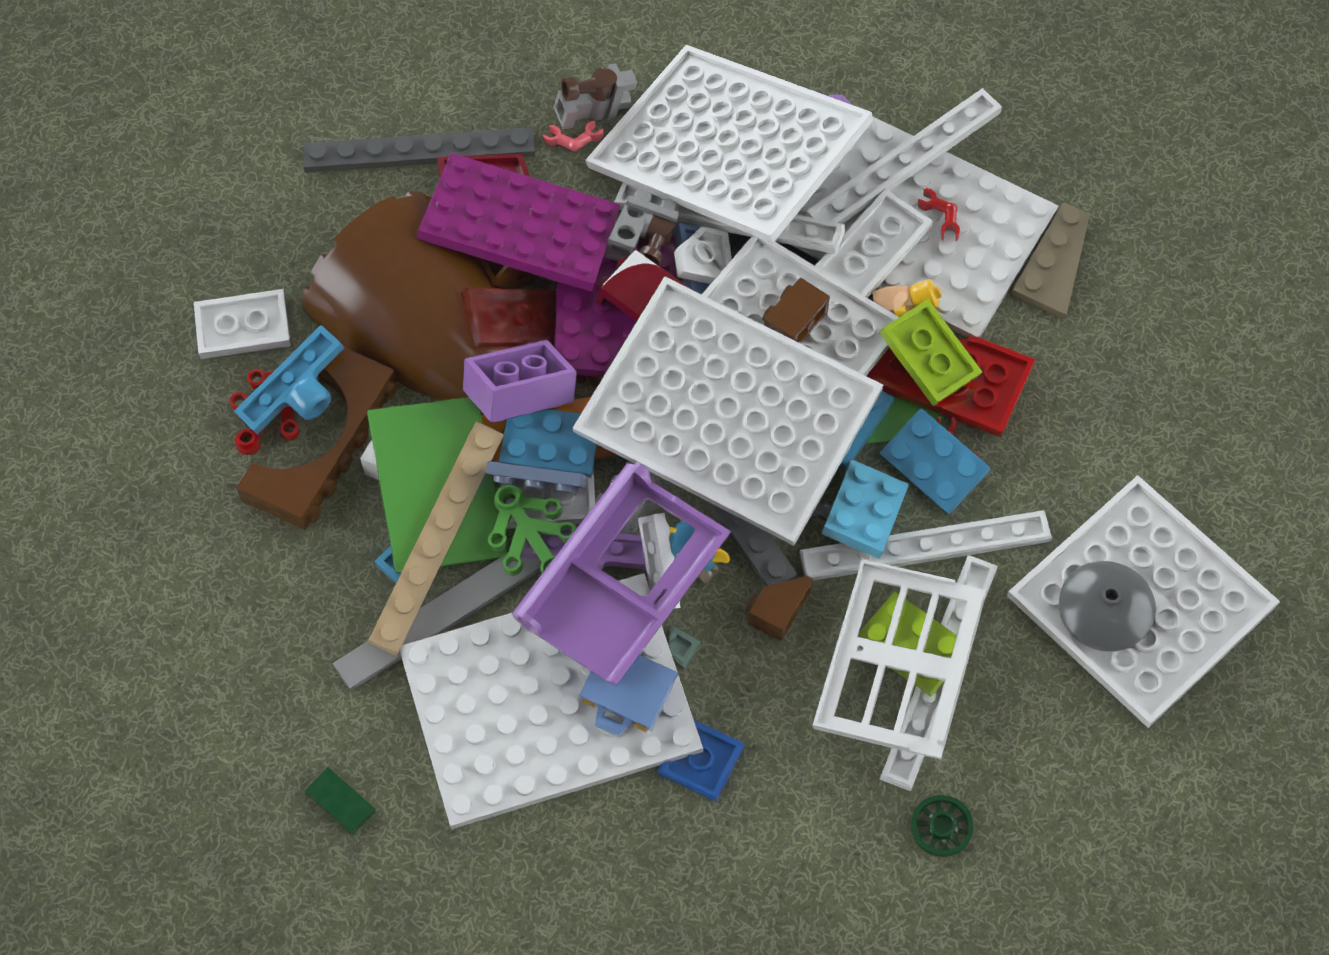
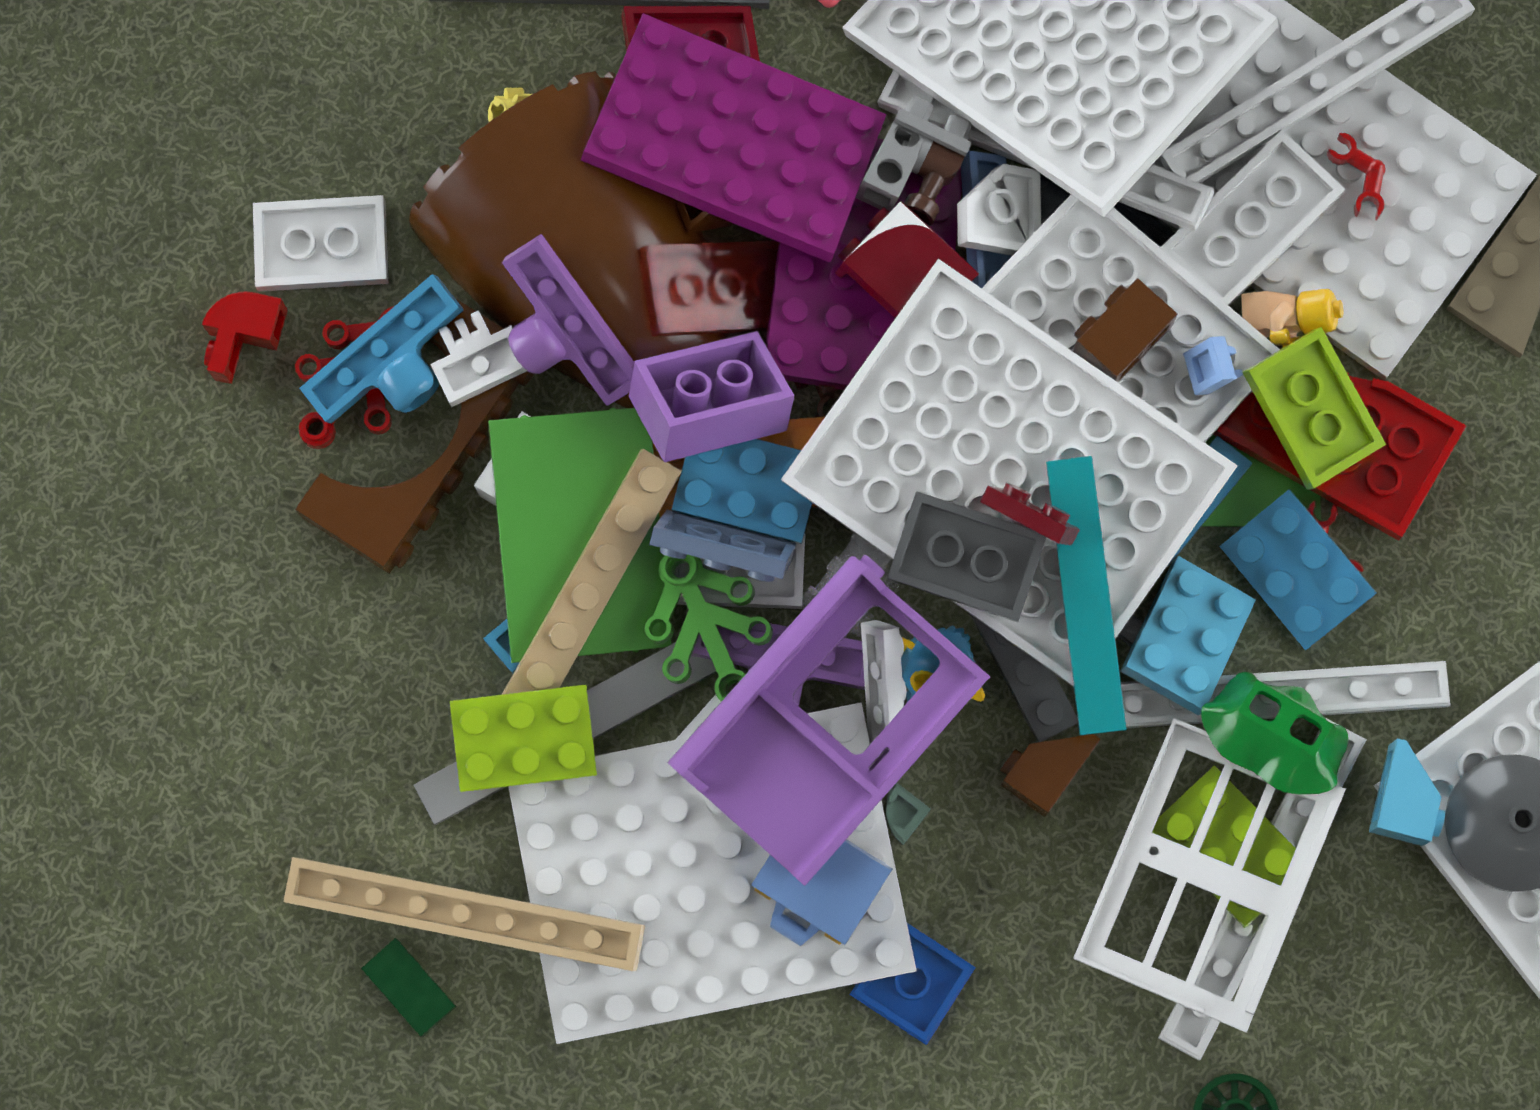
camera: 10 degrees right, 15 degrees up
(190, 376) = (239, 320): none -> red brick
(356, 378) = (475, 361): none -> white hinge
(376, 740) = (465, 914): none -> tan plate
(408, 616) = (523, 738): none -> lime plate
(414, 344) = (564, 324): none -> medium lavender plate
(706, 460) = (967, 556): none -> dark grey plate
(734, 420) = (1047, 521): none -> dark red plate
(791, 479) = (1087, 599): none -> teal tile
(857, 329) = (1211, 365): none -> light blue tile
(930, 567) = (1268, 745): none -> green piece
(1030, 595) = (1406, 799): none -> medium azure slope

